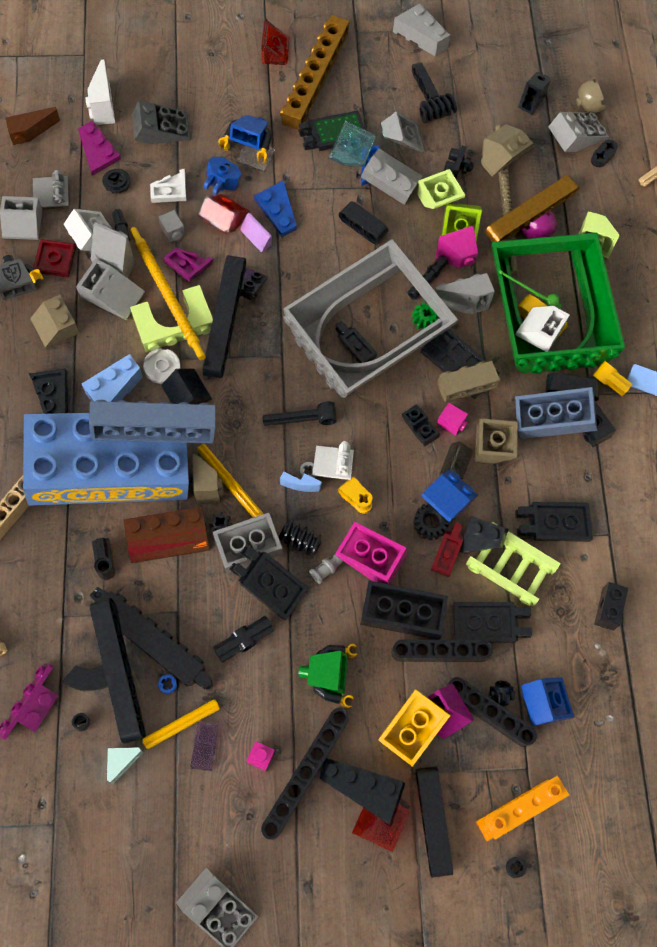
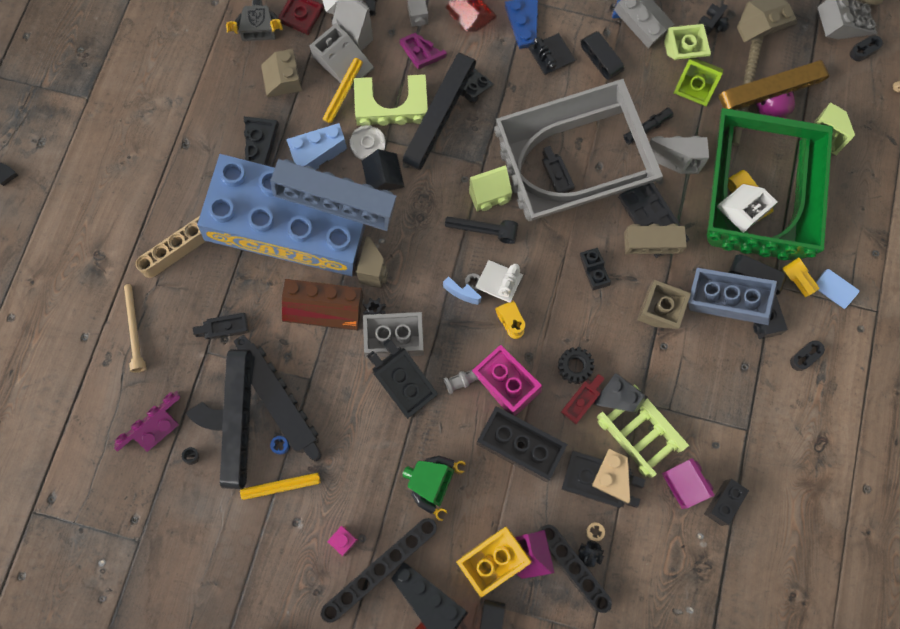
camera: 20 degrees right, 5 degrees up
(73, 585) = (222, 326): none -> black hinge
(103, 557) = (257, 308): black piece -> none
(120, 761) = (214, 503): light aqua slope -> none
(121, 323) = (342, 90): none -> yellow axle
(168, 294) = (392, 72): yellow hose -> none
(204, 746) = (295, 514): clear purple slope -> none
(229, 481) = (396, 271): yellow axle -> none
(243, 639) = (361, 424): black piece -> none
(256, 233) = (495, 38): lavender slope -> none
(297, 377) = (490, 188): none -> yellowish green slope
(301, 538) = (445, 345): black piece -> none
(314, 233) = (551, 53): none -> black hinge
(423, 316) = (631, 163): green gear -> none
(449, 495) = (600, 346): blue slope -> none
(451, 648) = (556, 493): black beam -> none
(453, 419) = (628, 272): dark pink brick -> none
(457, 459) = (618, 315): clear smoke slope -> none
(458, 247) = (688, 104): dark pink slope -> none
(500, 613) = (614, 476): none -> tan wing
(504, 668) = (600, 528): none -> tan bush
(547, 701) = (632, 575): blue slope -> none
(550, 300) = (763, 181): bright green sword -> none
(556, 521) = (698, 402): black tile -> none
(570, 599) = (688, 483): none -> magenta slope
(637, 447) = (804, 352): none -> black beam

